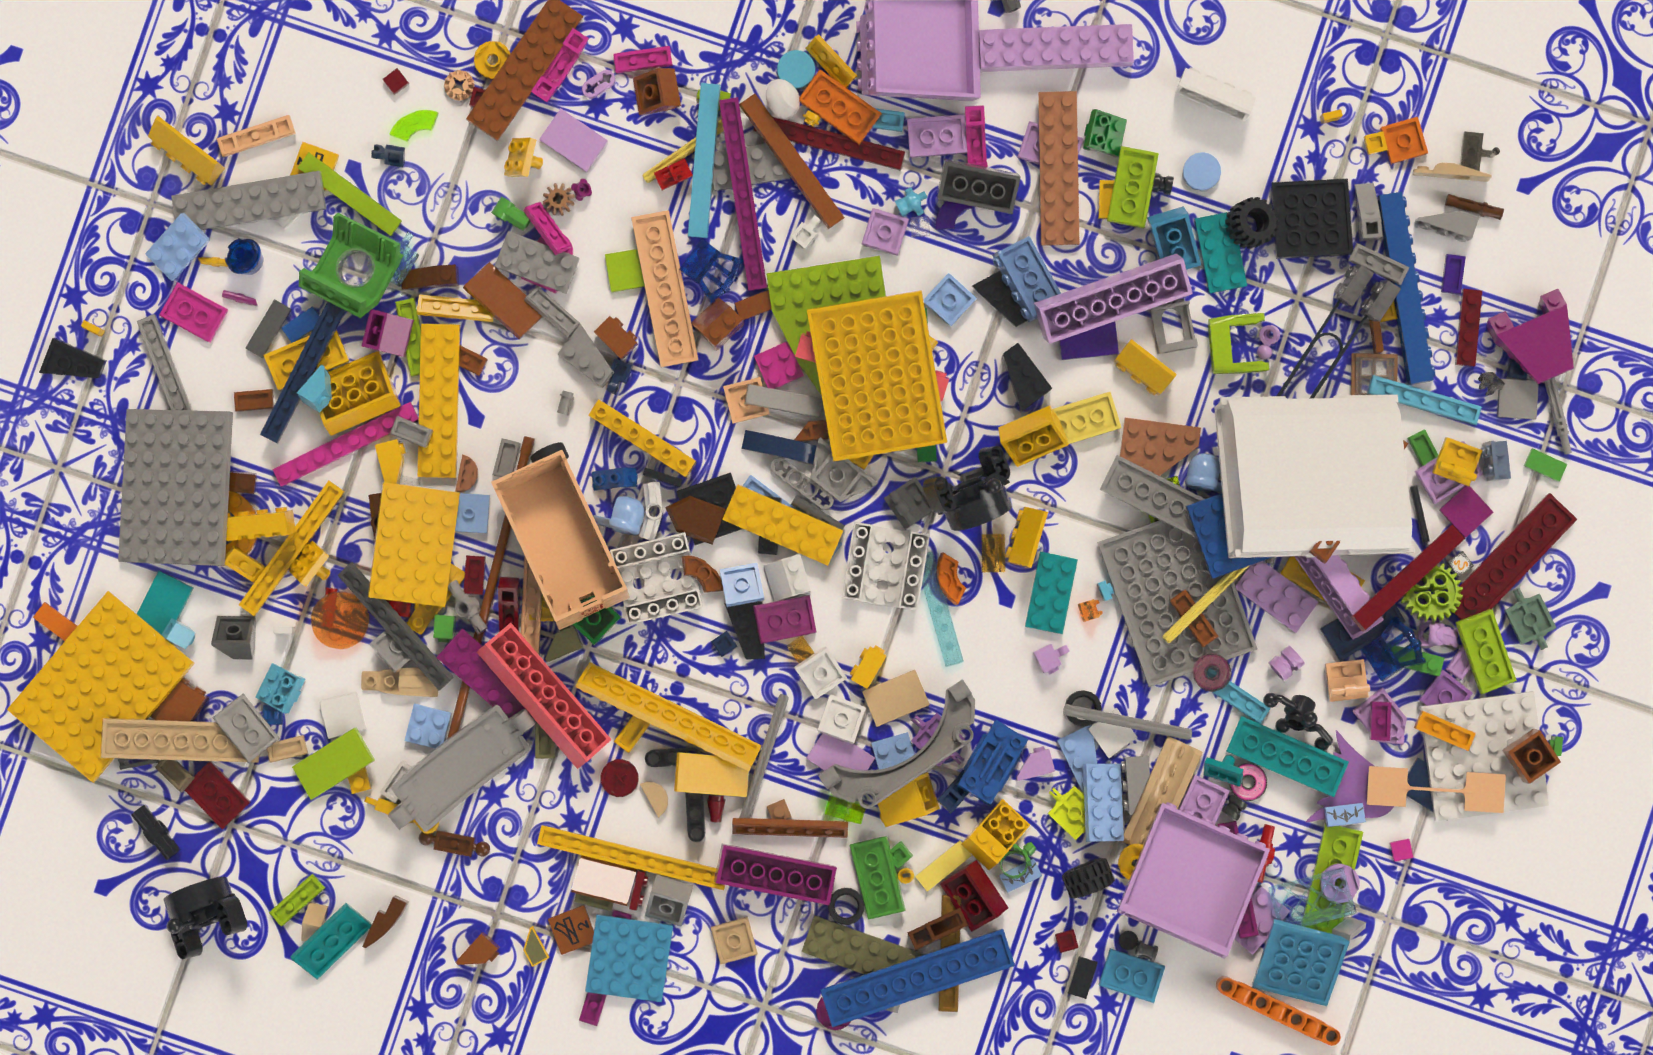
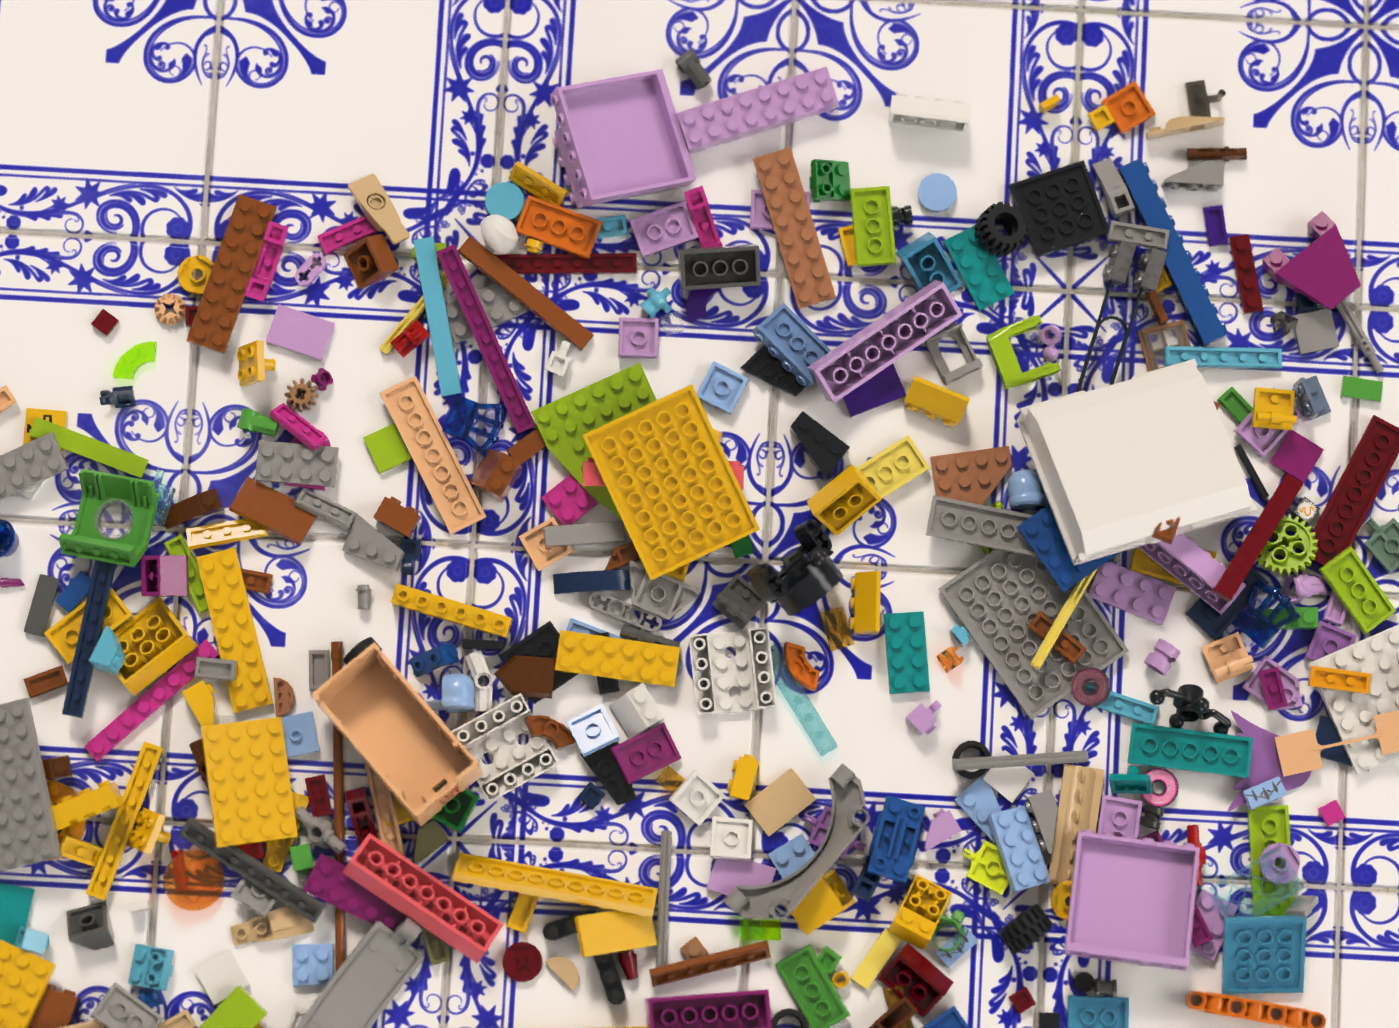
camera: 20 degrees left, 5 degrees down
(677, 43) = (378, 208): none -> tan piece

